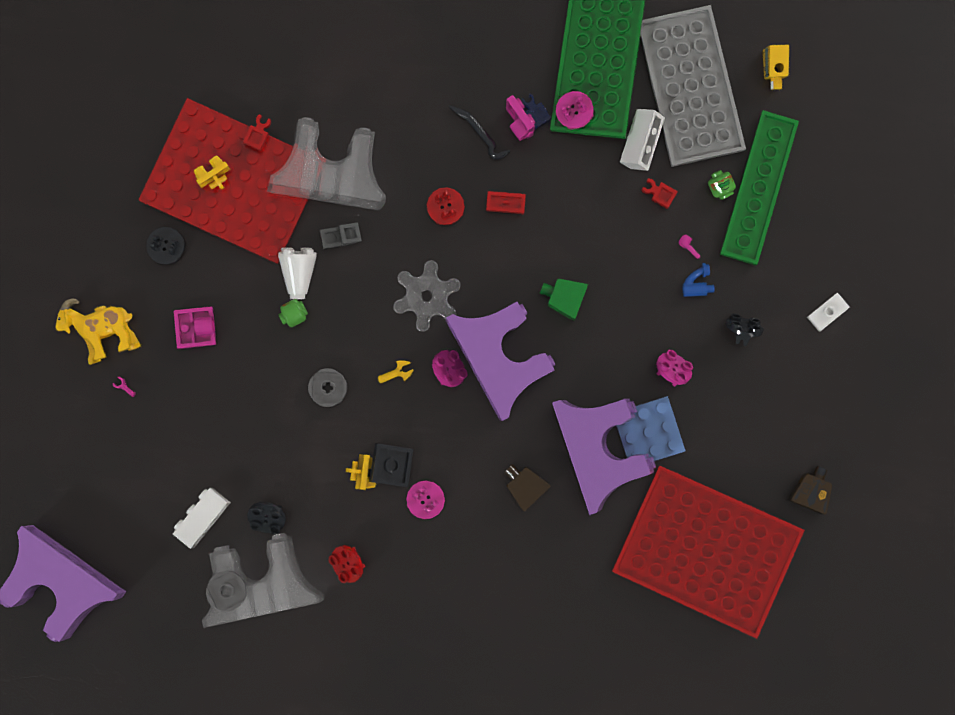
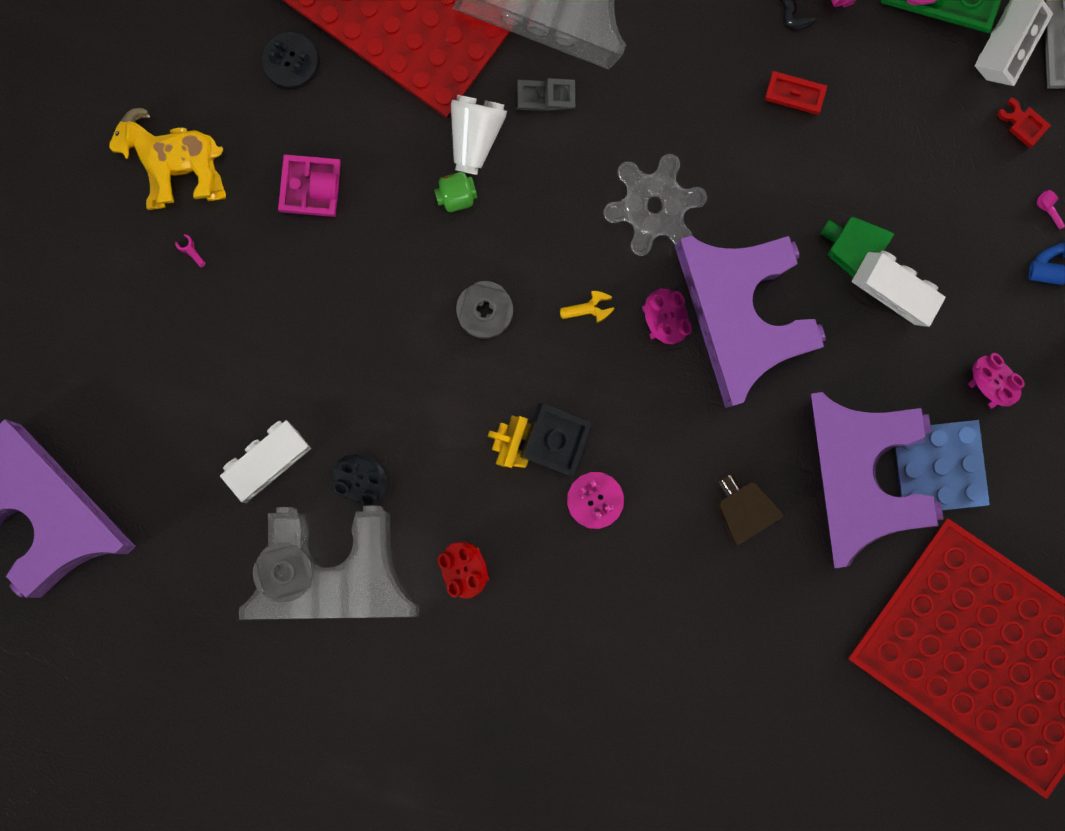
camera: 15 degrees right, 0 degrees up
(443, 197) = (708, 94): red plate -> none
(597, 319) = (899, 288): none -> white brick

